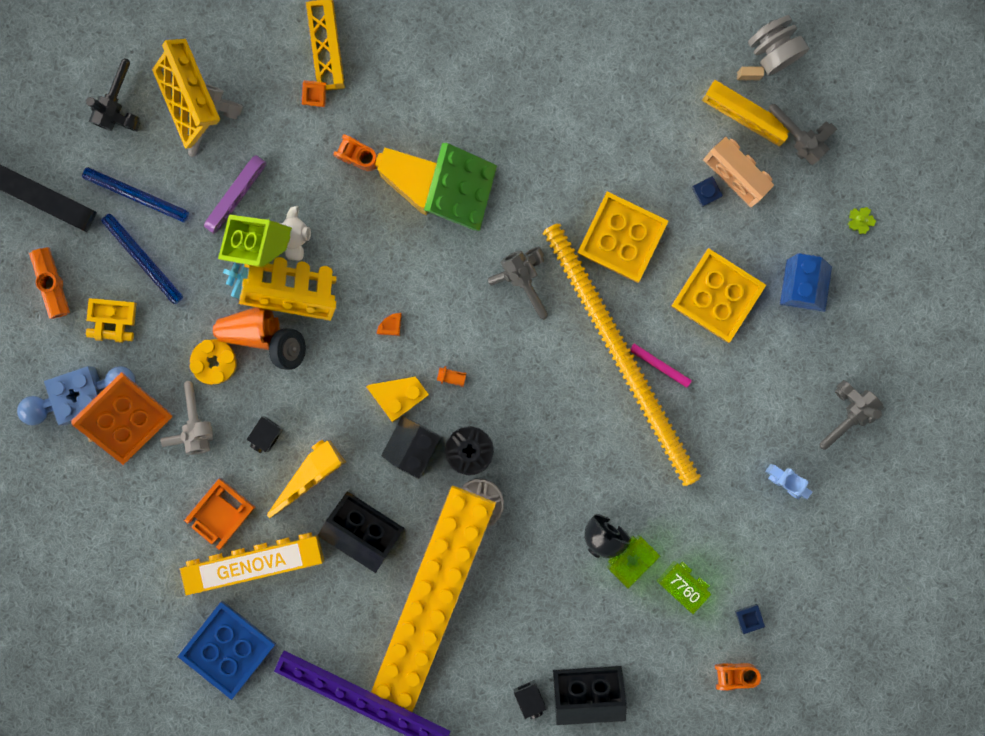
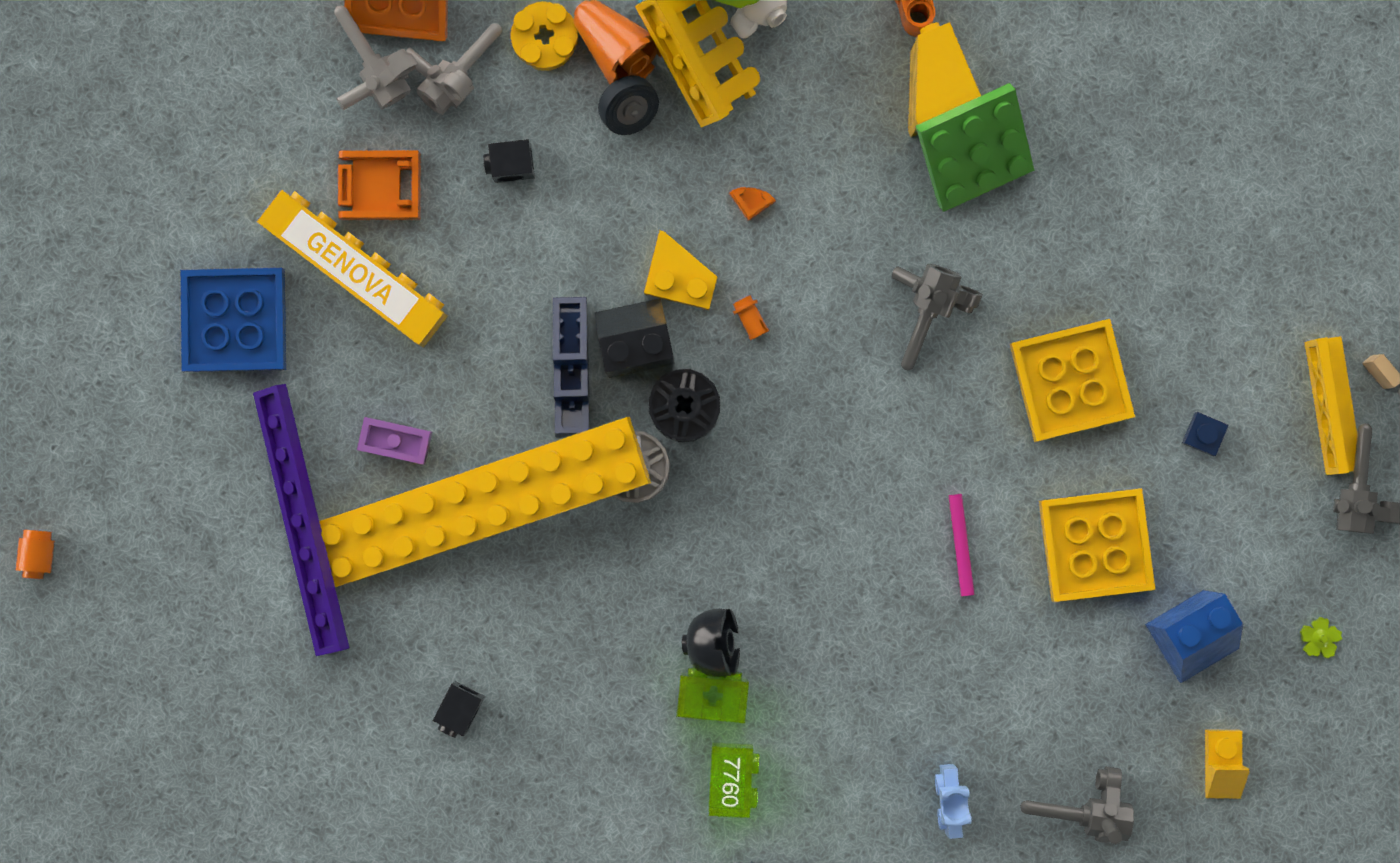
camera: 50 degrees right, 0 degrees up
(164, 465) = (382, 76): none -> light grey piece
(314, 469) = (517, 249): yellow wedge -> none
(360, 531) = (490, 360): black slope -> none
(361, 617) = (394, 440): none -> medium lavender plate
(399, 492) = (570, 366): none -> dark blue slope
(589, 695) = (519, 773): black slope -> none
(621, 354) = (937, 488): yellow piece -> none
(739, 171) = (1259, 450): light nougat slope -> none
(886, 325) = (1223, 764): none -> yellow slope

